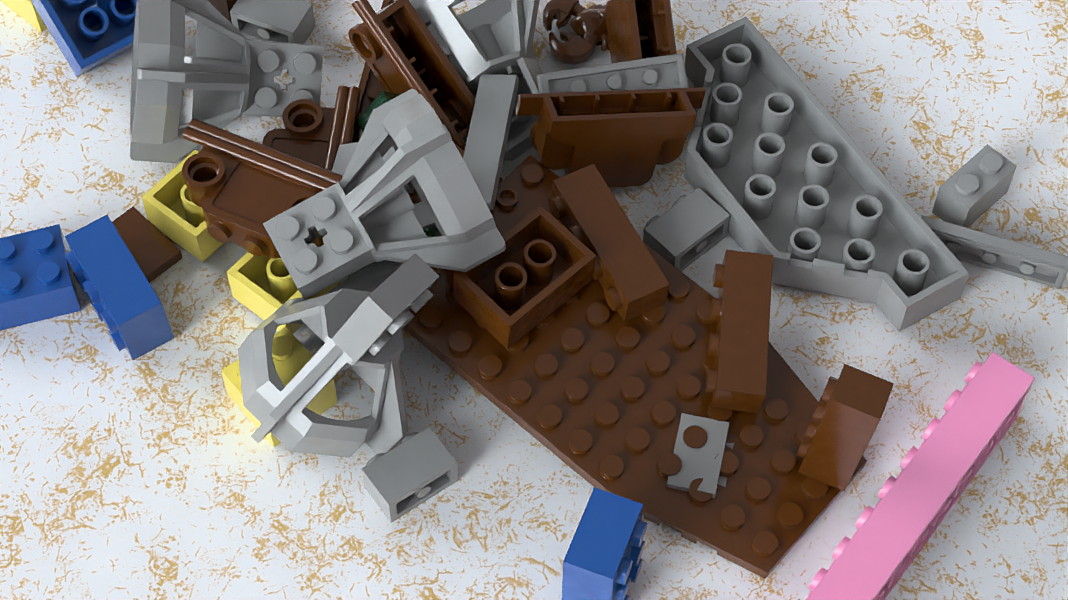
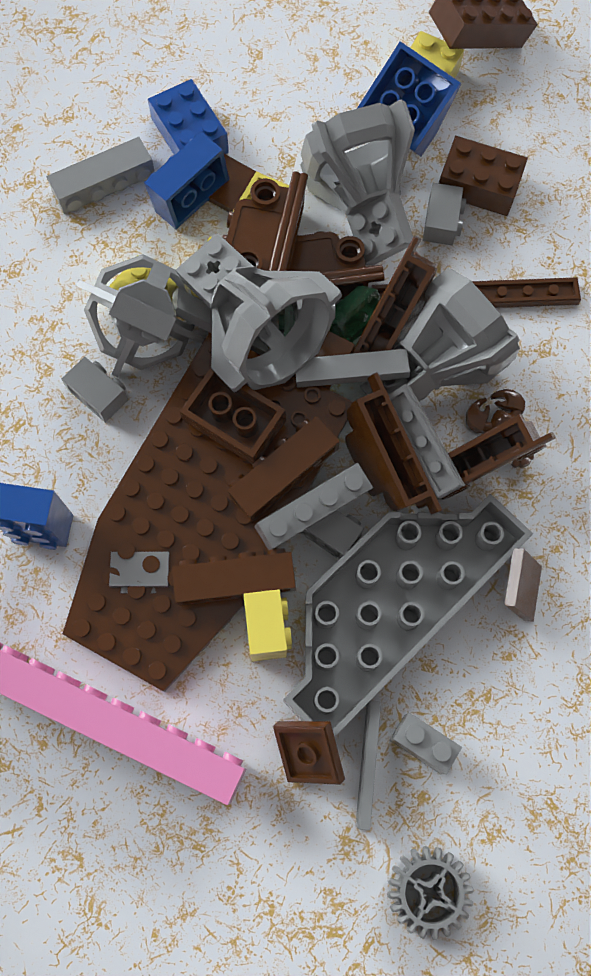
camera: 75 degrees right, 15 degrees up
(51, 412) = (101, 175): none -> light grey brick
(668, 222) = (313, 506): none -> light grey brick
(802, 47) = (523, 584): none -> tile
(809, 315) = (265, 625): none -> light yellow brick
(843, 426) = (137, 656): reddish brown brick -> none
(973, 299) = (309, 752): none -> reddish brown tile

